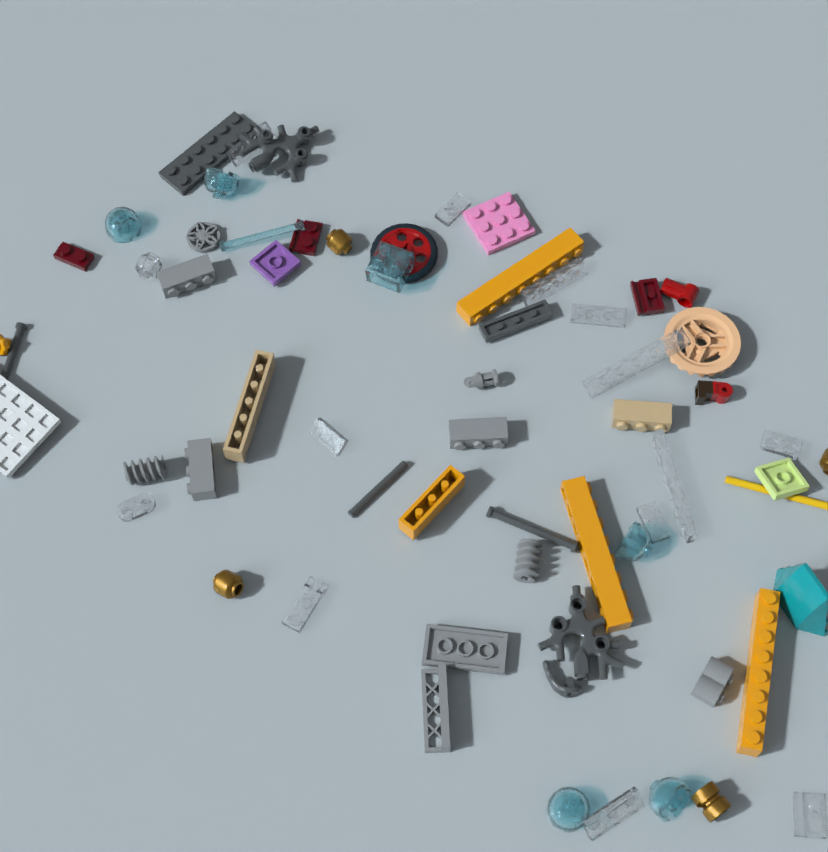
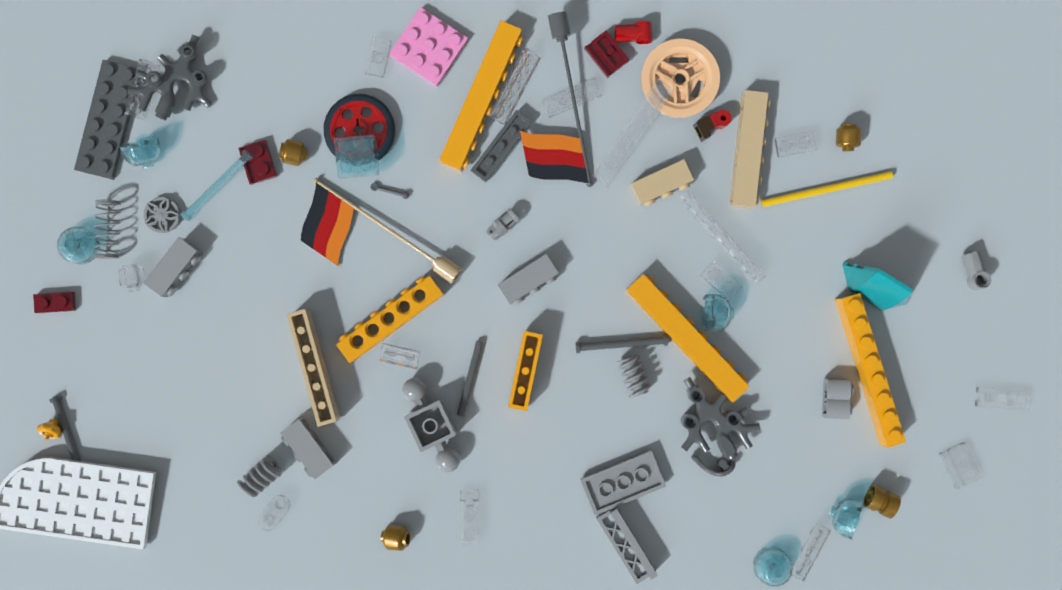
camera: 30 degrees left, 25 degrees up
(144, 241) = (107, 203): none -> light grey piece
(275, 263) = (246, 207): medium lavender plate -> none
(320, 504) = (431, 425): none -> light grey brick
(333, 411) = (347, 344): none -> light orange brick
(335, 309) = (330, 223): none -> flag
(389, 301) = (375, 187): none -> dark grey hinge
(561, 350) = (556, 154): none -> flag
(734, 428) = (749, 149): none -> tan brick
(781, 479) = (811, 179): yellowish green plate -> none

